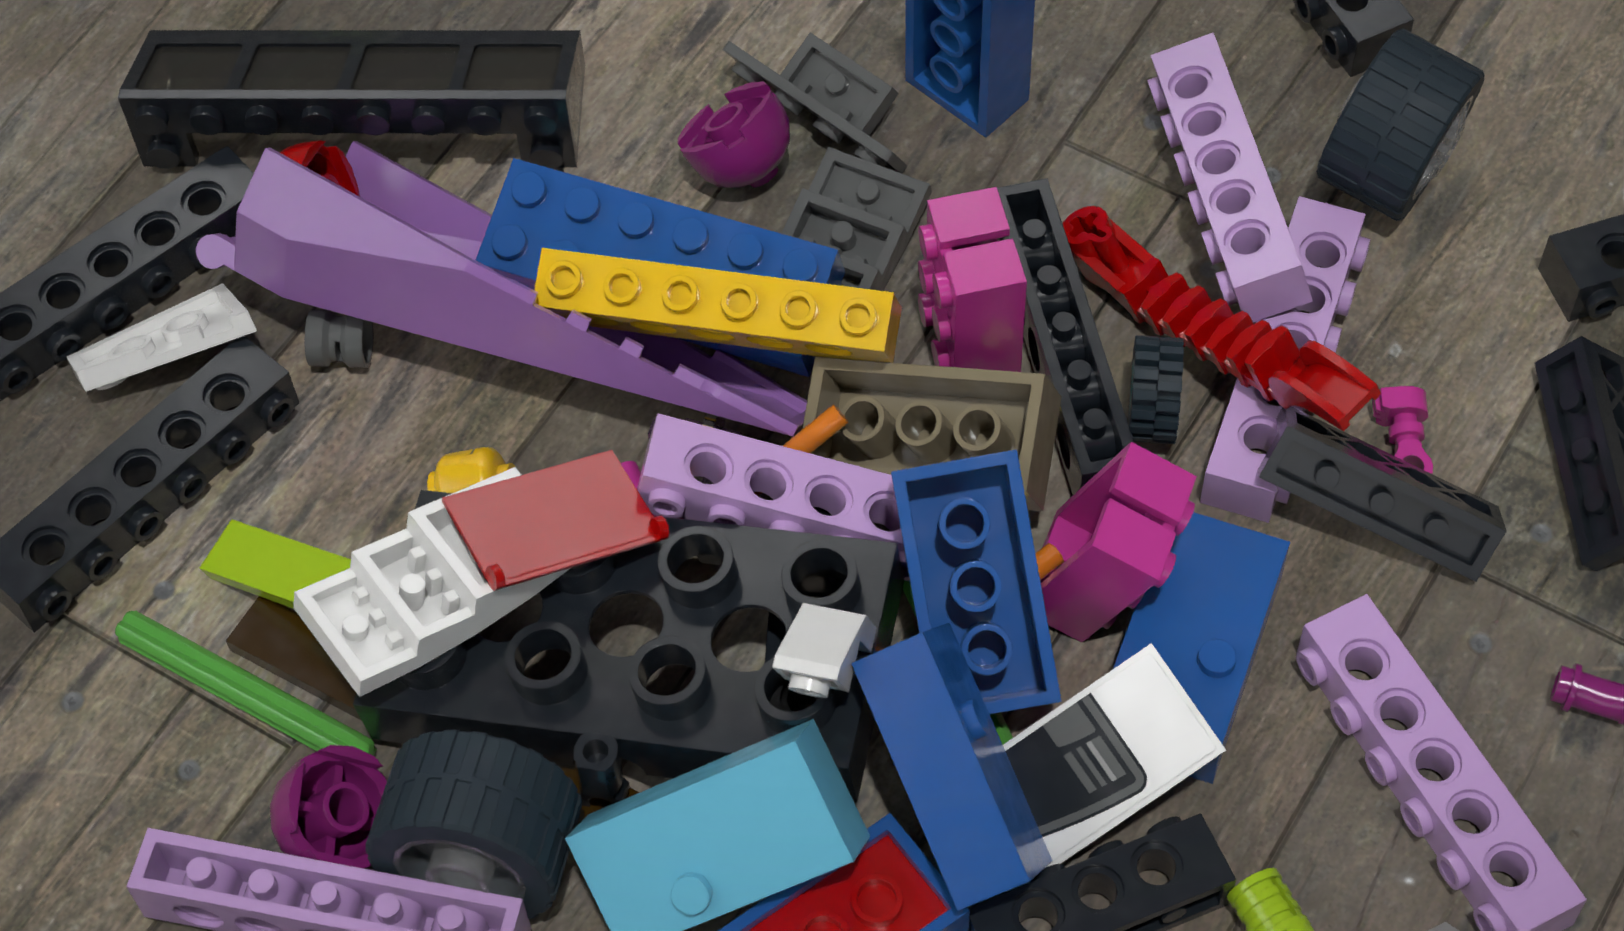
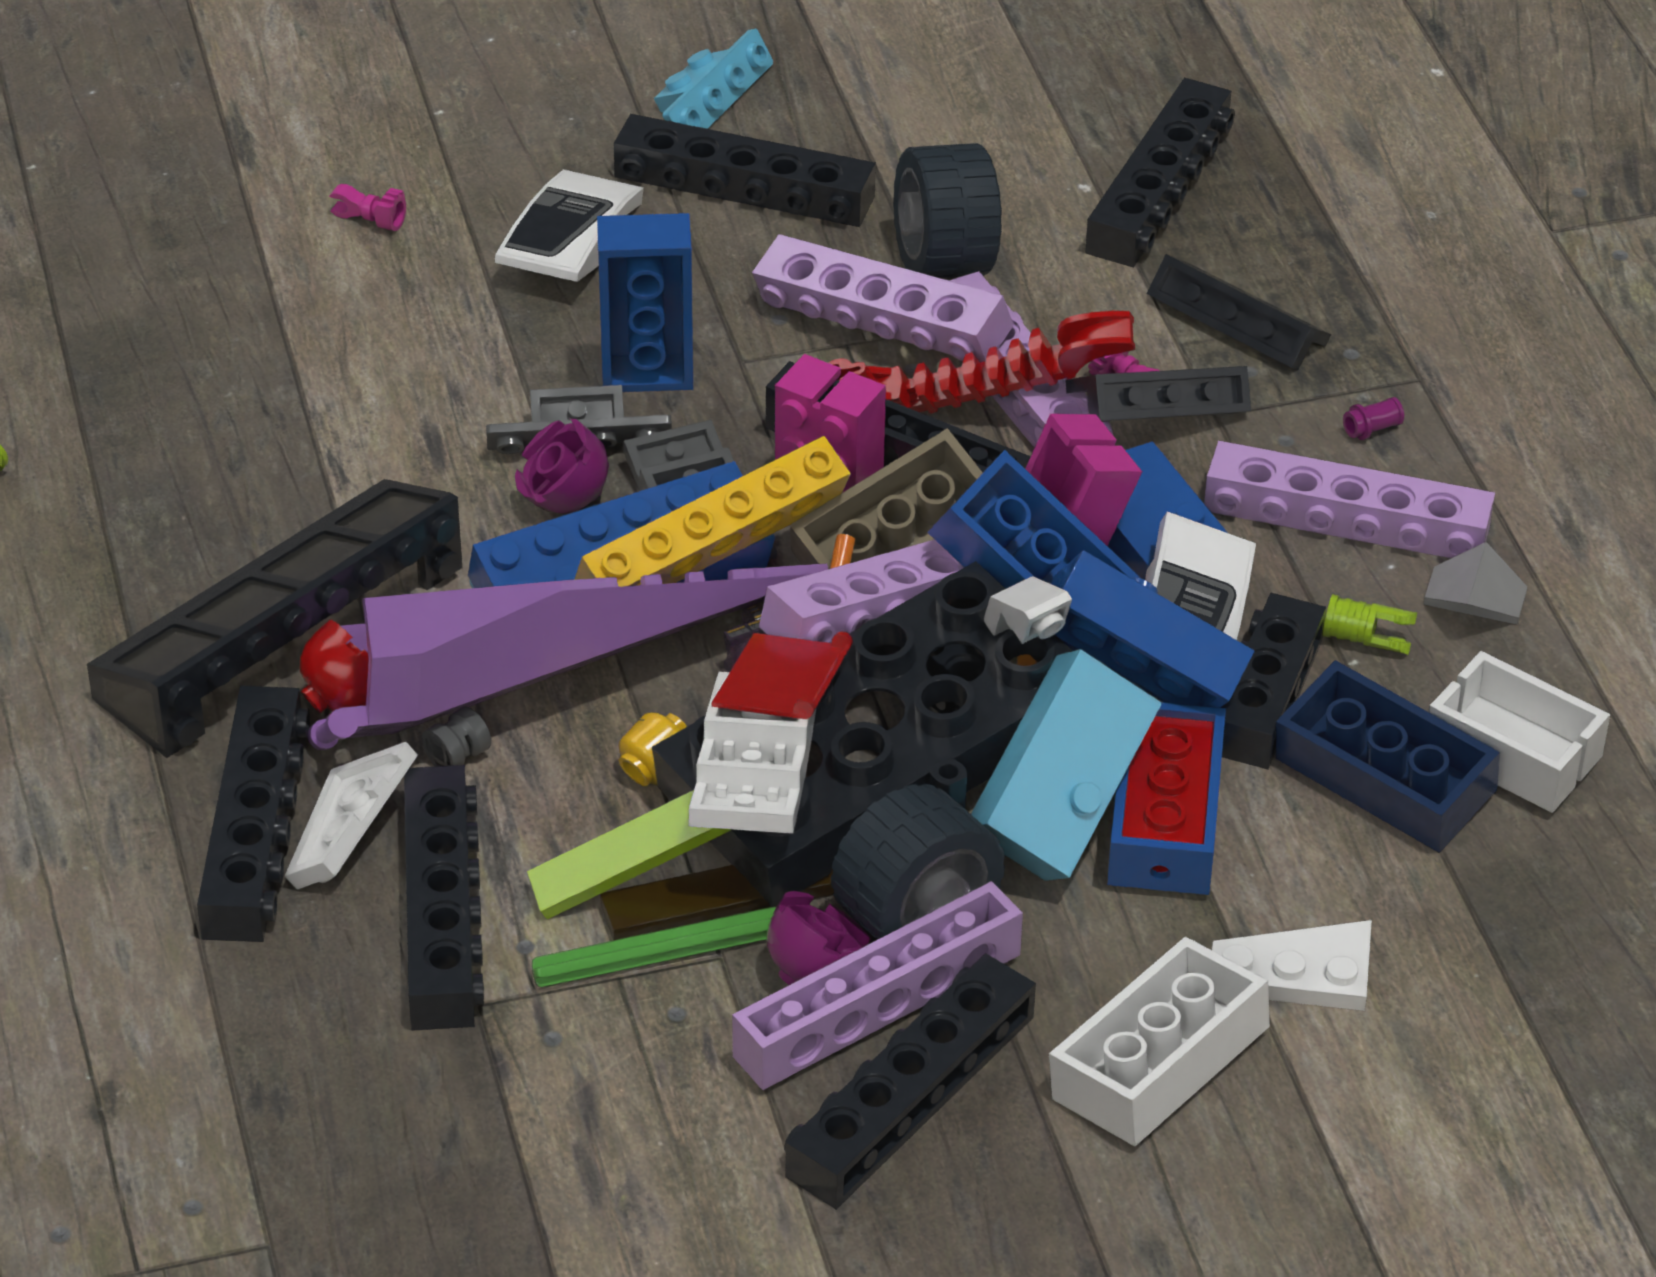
camera: 50 degrees left, 15 degrees down
(1155, 389) = (983, 414): black wheel -> none

